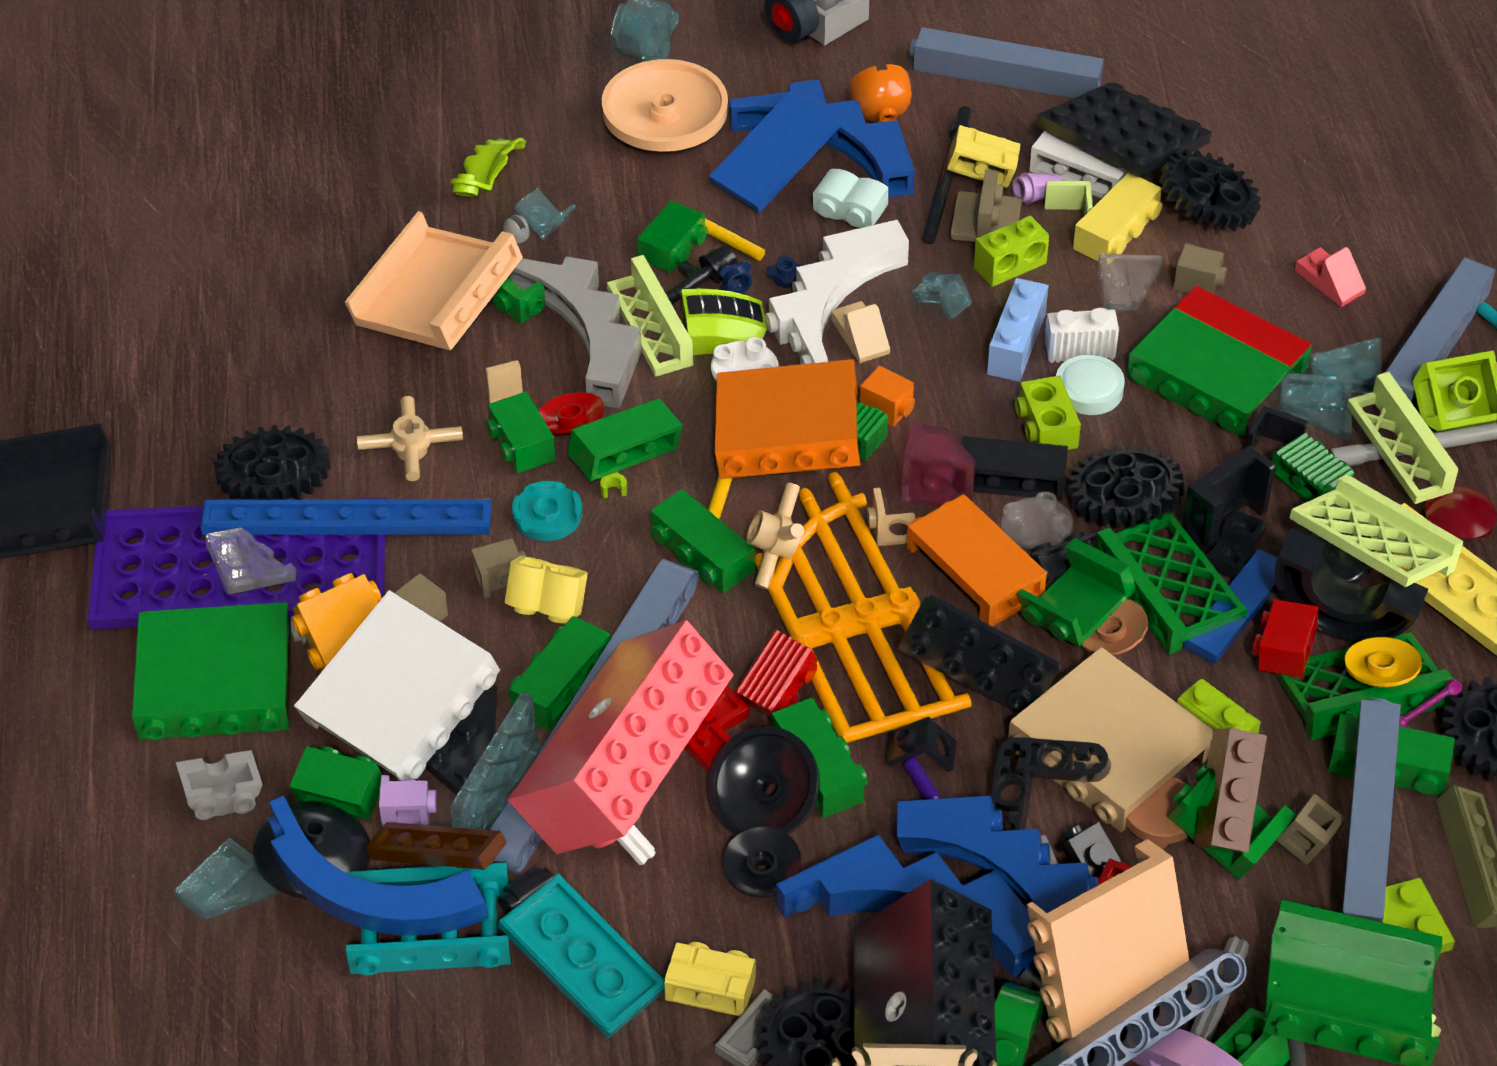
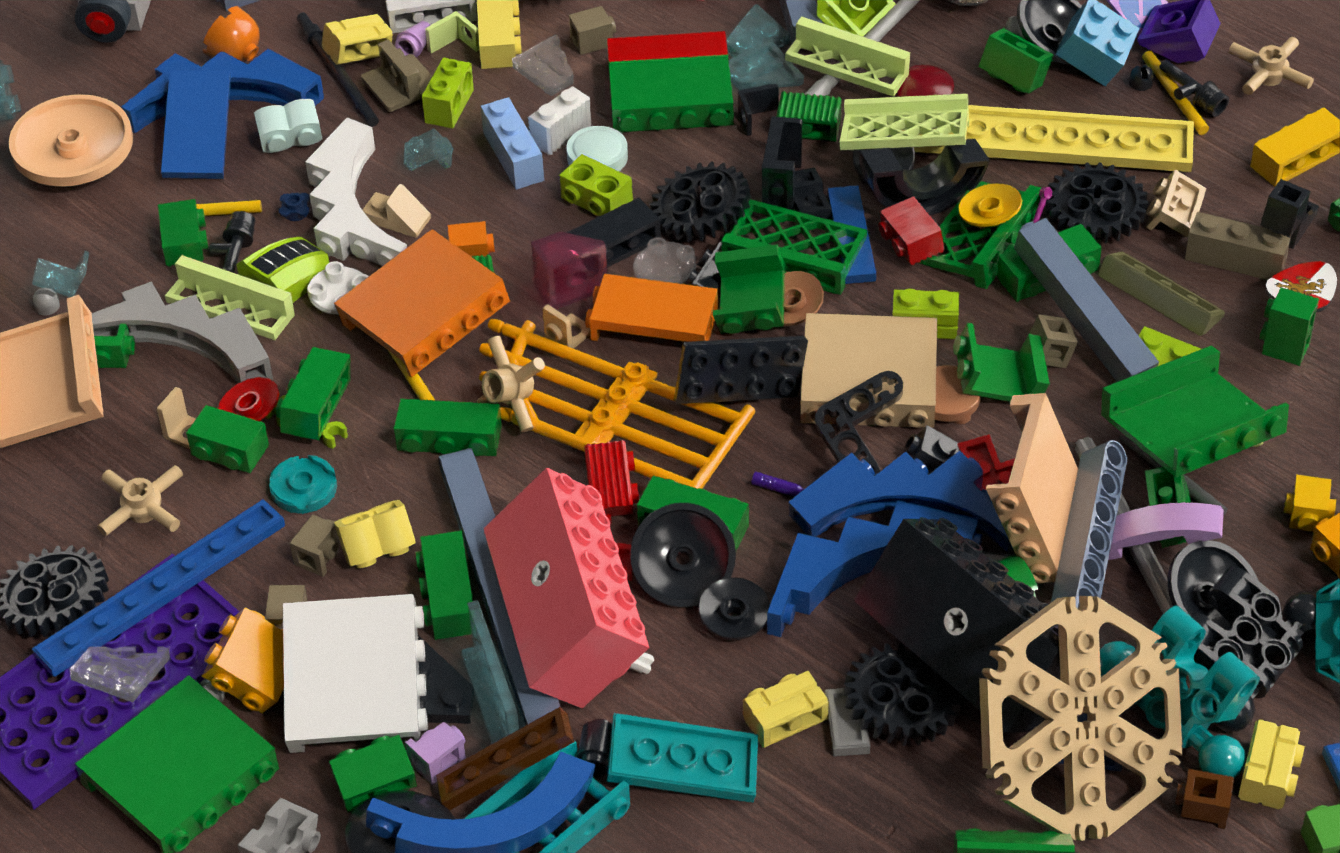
camera: 40 degrees left, 0 degrees up
(736, 277) = (265, 231): dark blue plate -> none
(919, 739) = (746, 459): black bracket -> none
(1230, 814) = (1012, 361): arch -> none

